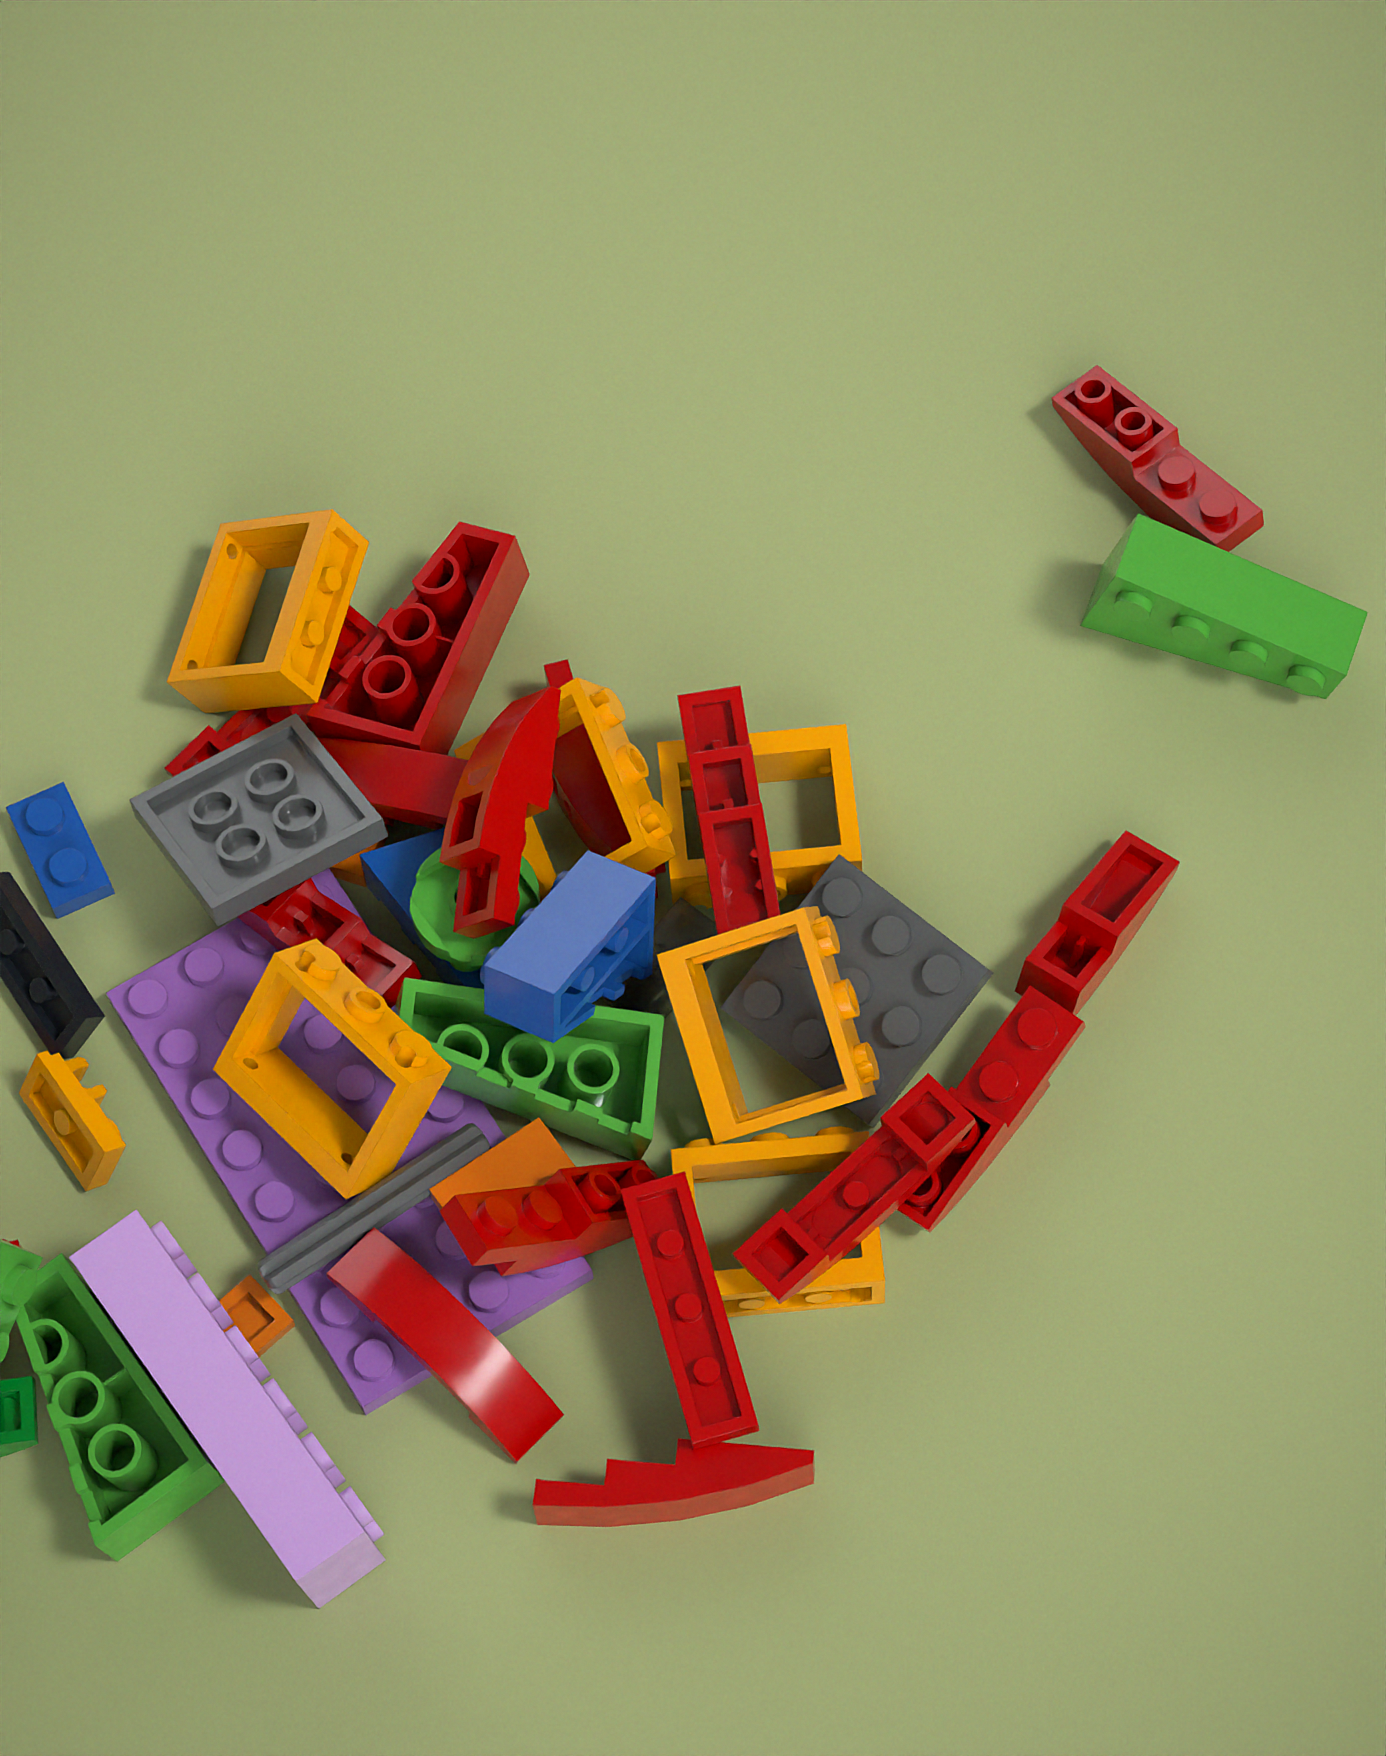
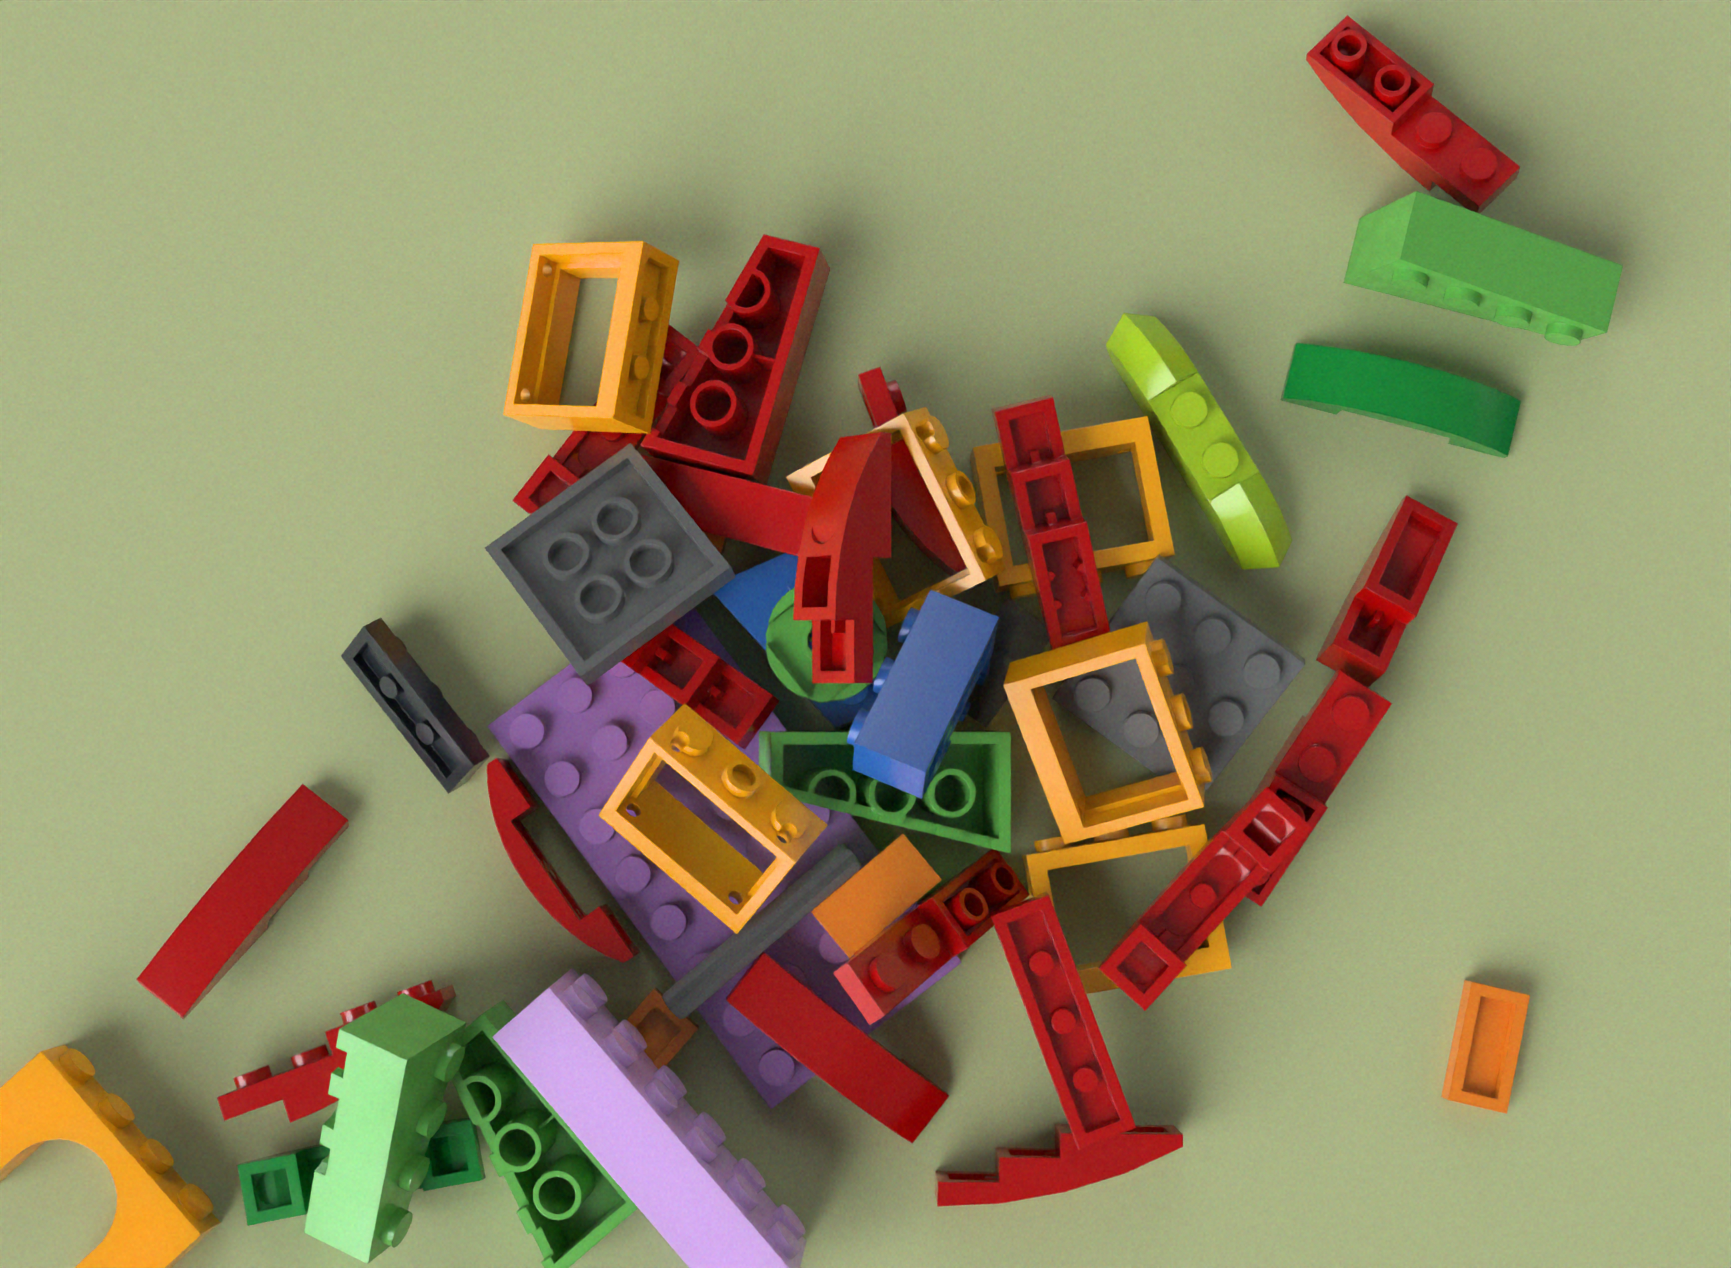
camera: 10 degrees left, 20 degrees up
(60, 850) = (424, 581): blue plate -> none
(73, 1117) = (477, 861): light orange plate -> none
(189, 1197) = (511, 804): none -> red slope
(906, 764) = (1200, 441): none -> lime brick
(1135, 731) = (1403, 395): none -> green slope
(1173, 1407) = (1485, 1046): none -> orange tile

